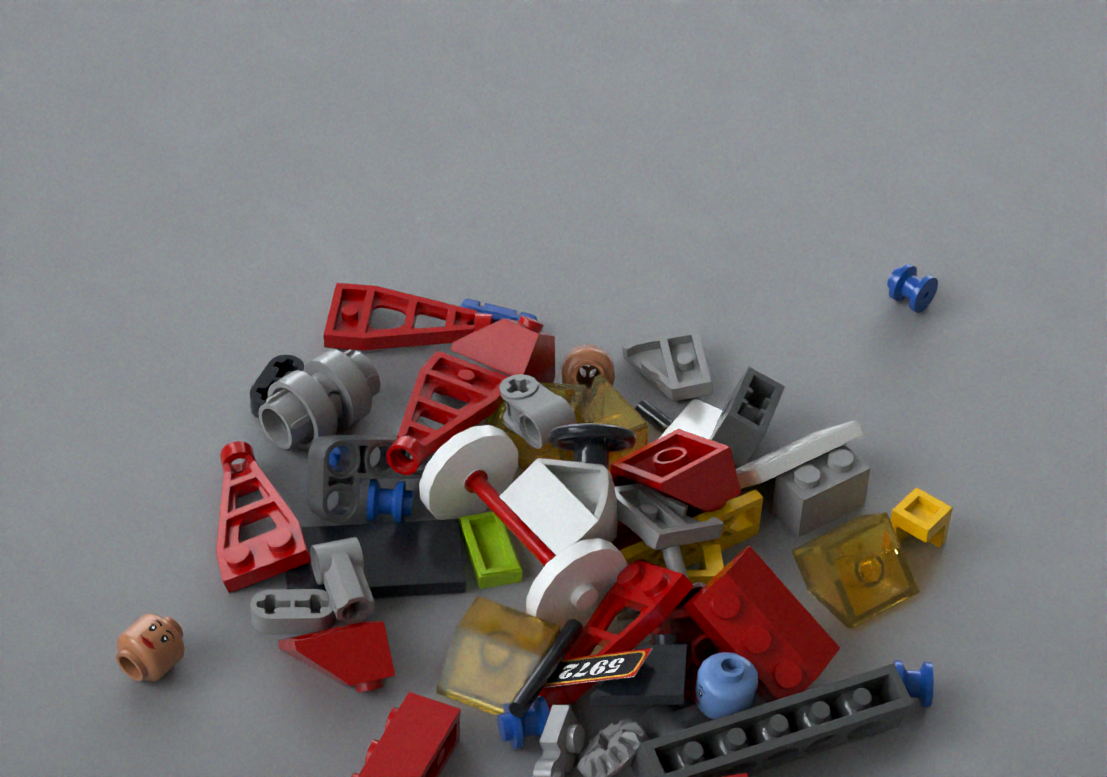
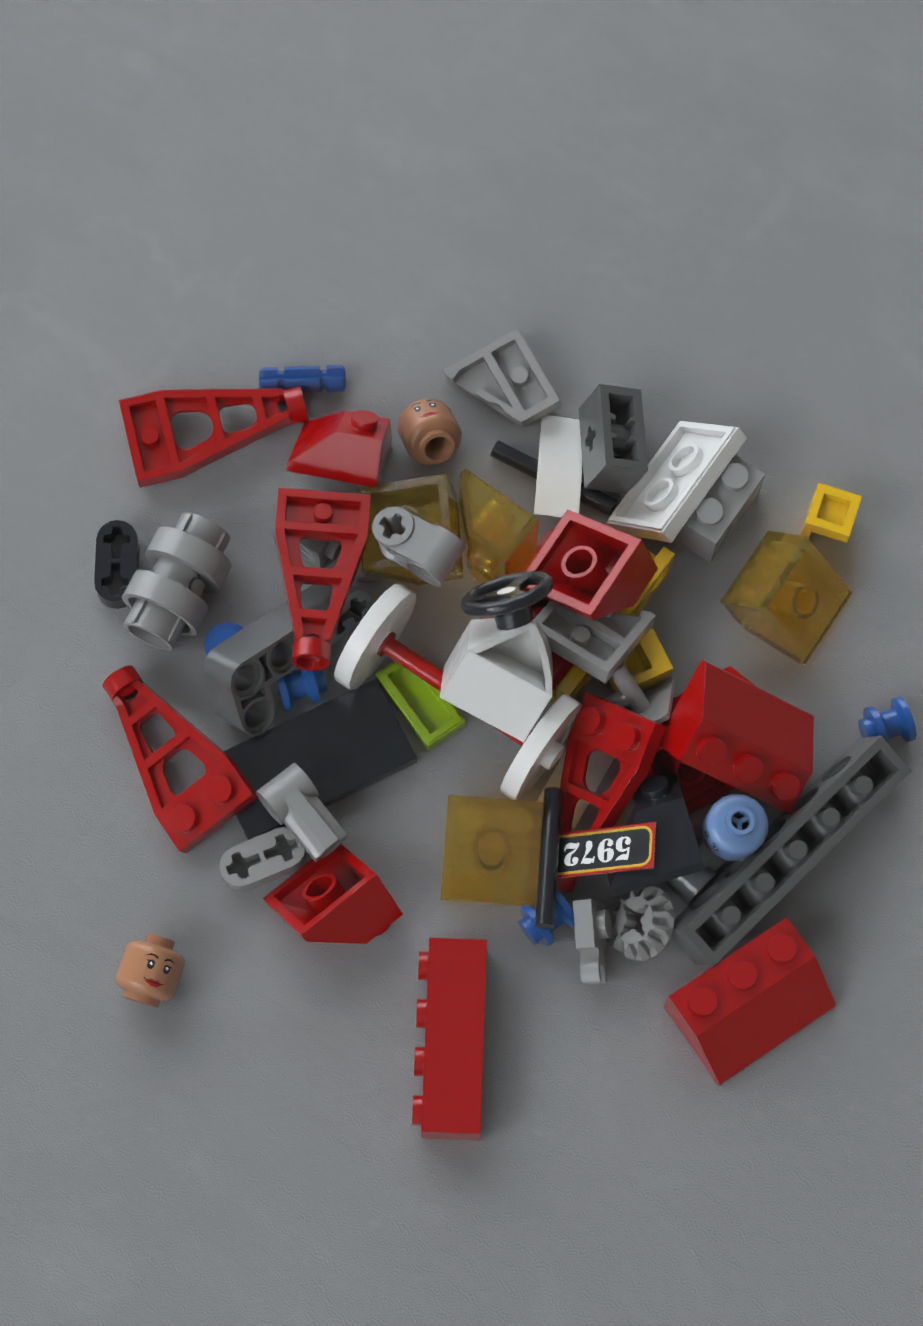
camera: 20 degrees left, 30 degrees up
(905, 283) = (707, 179): blue wheel -> none

